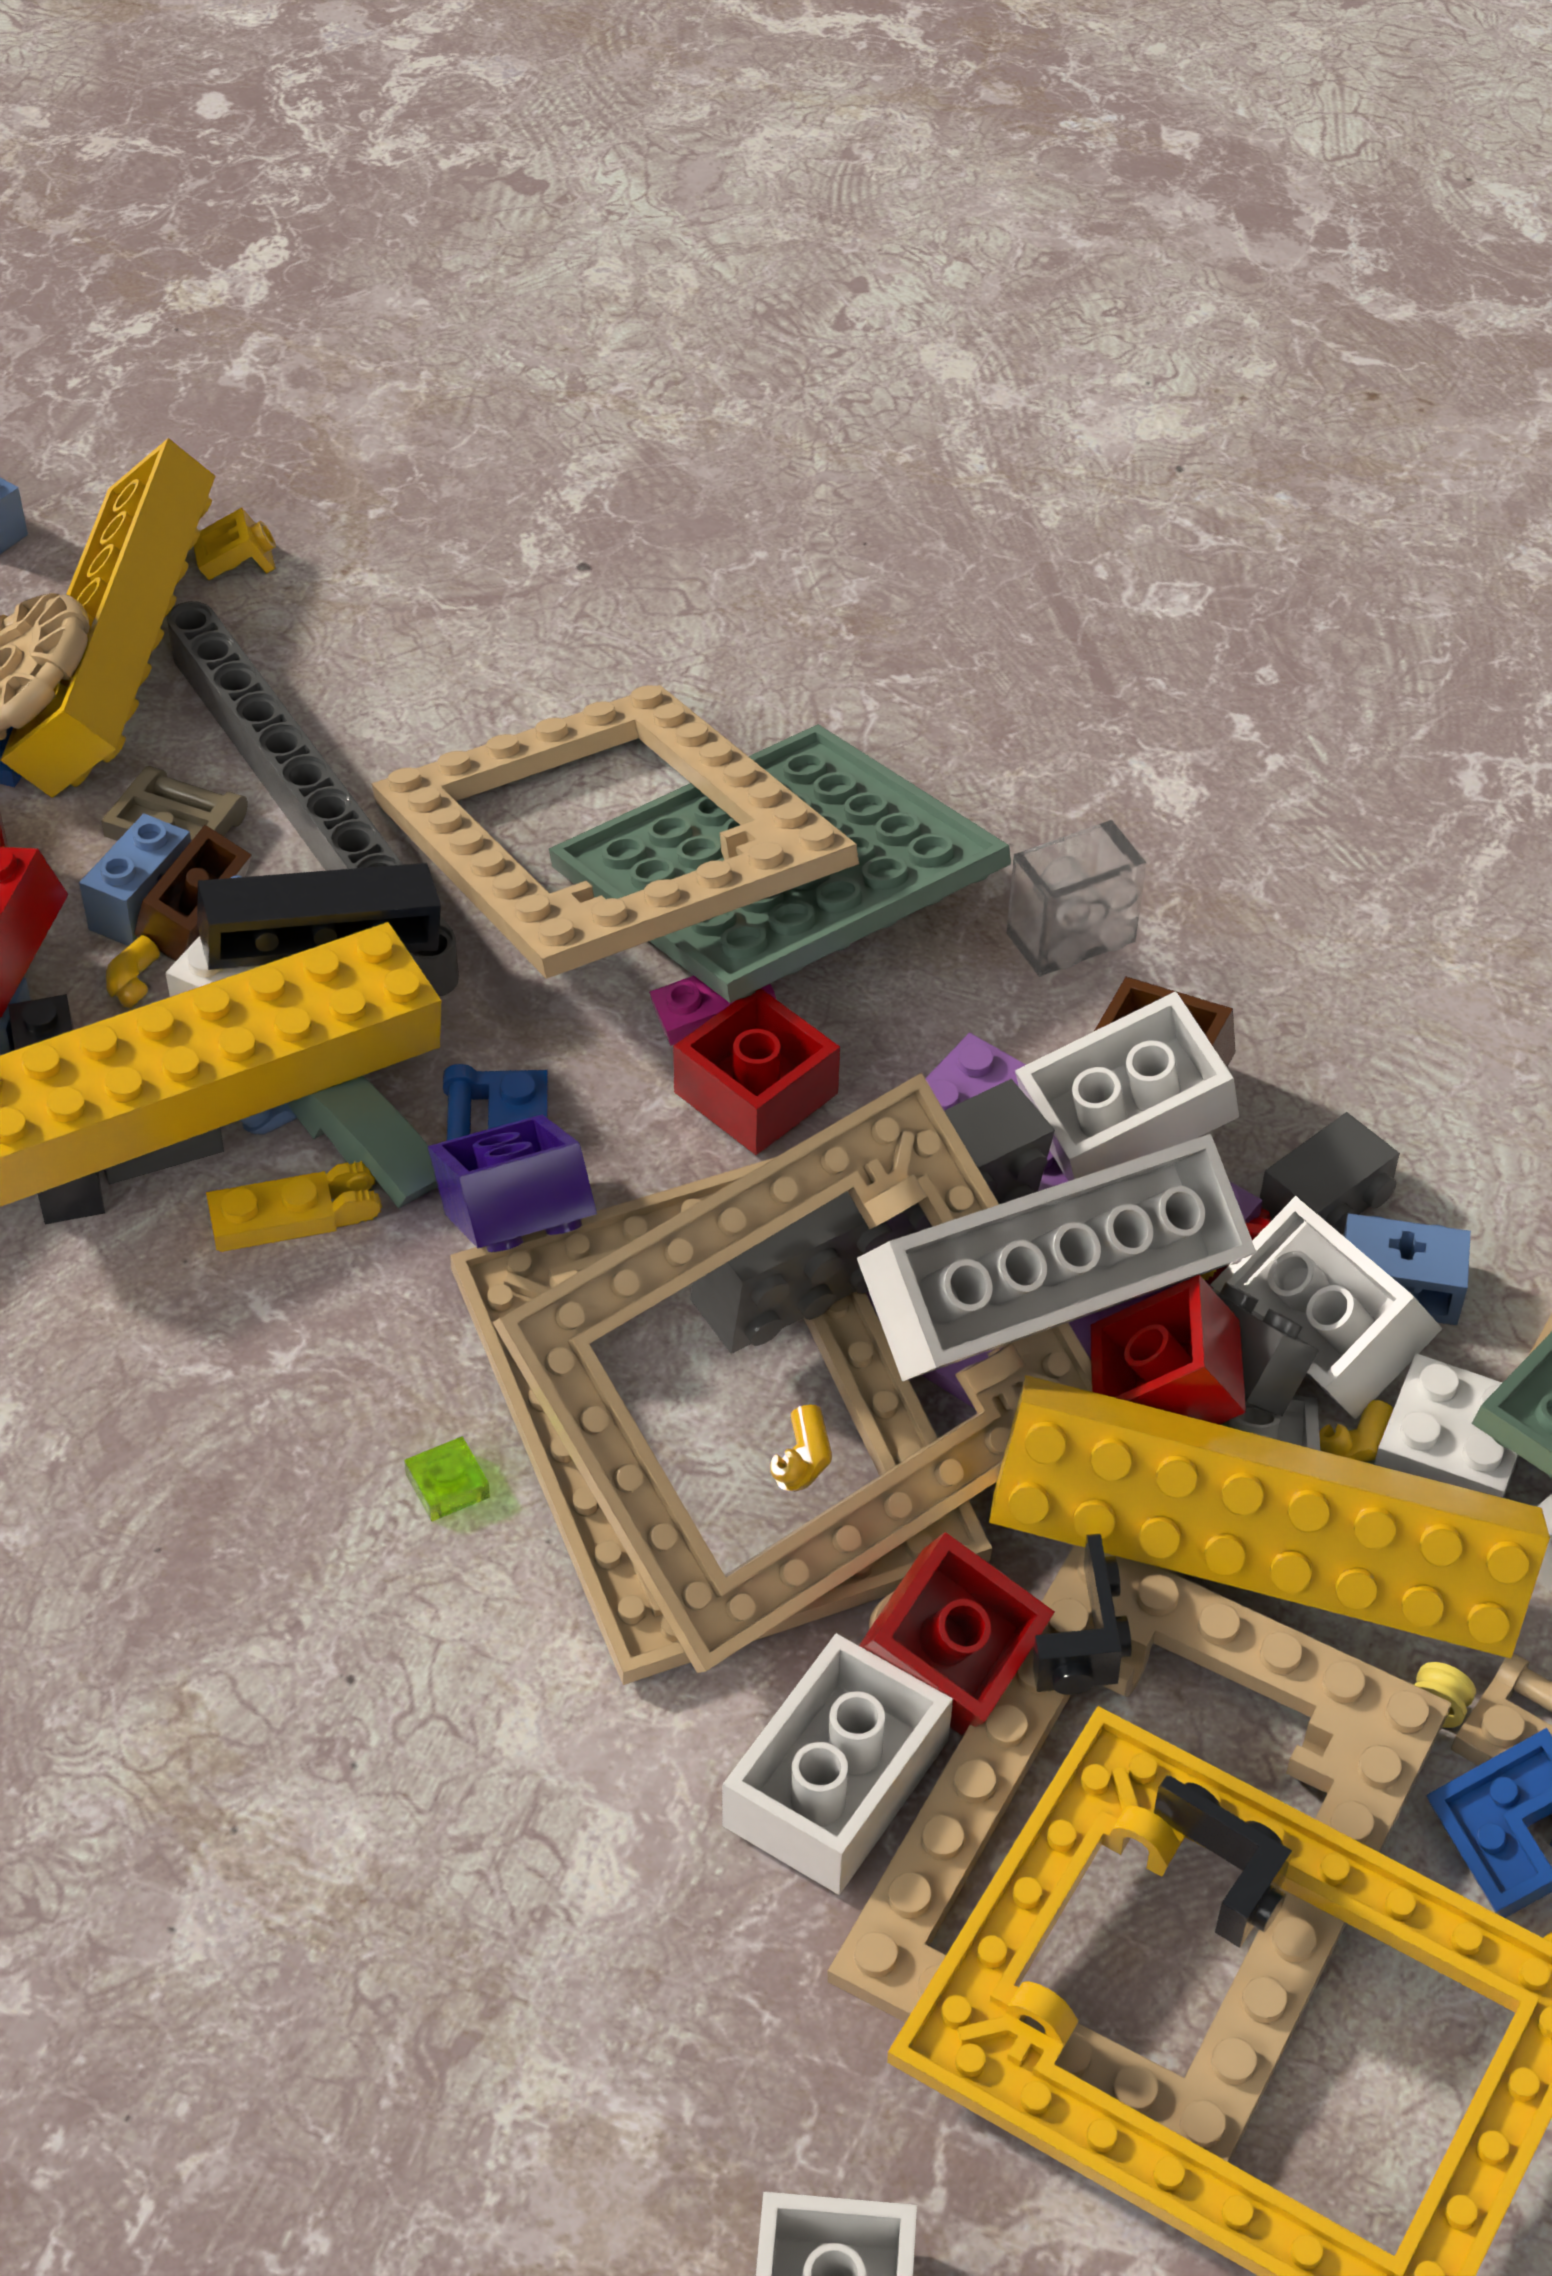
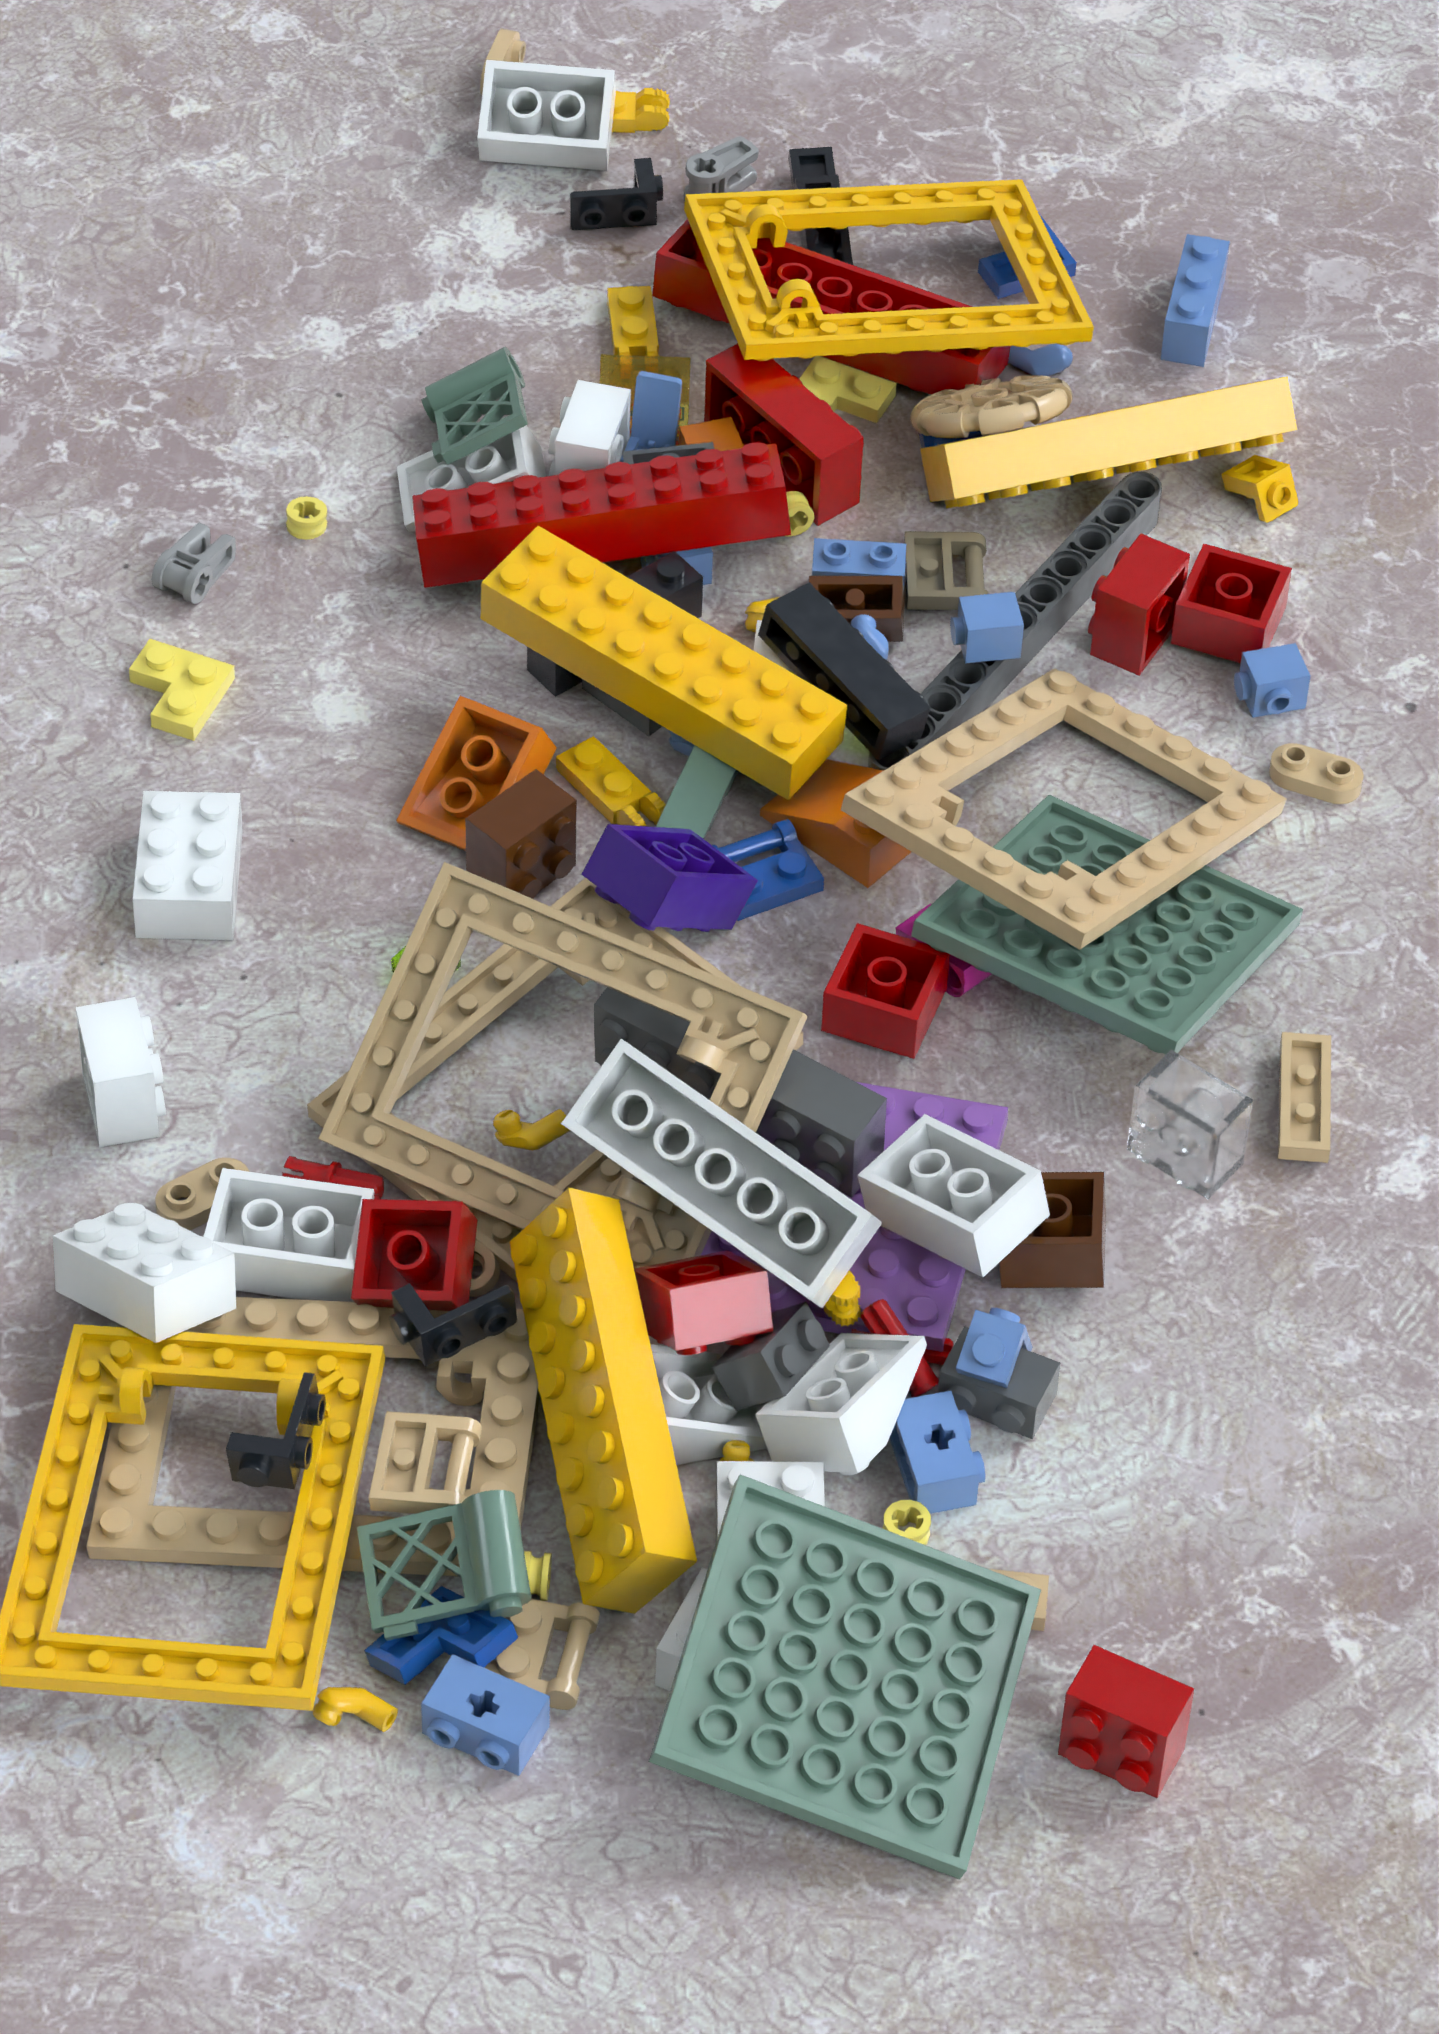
camera: 65 degrees right, 0 degrees up
(156, 1664) = (187, 865): none -> white brick
(204, 1321) = (470, 765): none -> orange slope
(332, 782) = (988, 627): none -> medium blue brick
(352, 677) = (1137, 603): none -> red brick
(355, 1303) = (523, 836): none -> reddish brown brick
(394, 619) = (1230, 603): none -> red brick
(479, 1854) = (120, 1071): none -> white brick
(491, 1014) = (831, 832): none -> orange slope
(504, 633) = (1273, 680): none -> medium blue brick
(633, 656) = (1316, 773): none -> tan plate
(687, 1839) = (199, 1189): none -> tan plate
(749, 1691) = (334, 1174): none -> red axle
(846, 1936) = (144, 1272): none -> white brick
(1042, 808) = (1304, 1097): none -> tan plate
(1281, 1746) = (408, 1457): none -> tan plate
(1319, 1146) = (993, 1346): none -> medium blue bracket
(1457, 1710) = (488, 1556): none -> sand green piece
(1481, 1316) = (907, 1511): none -> light yellow bush

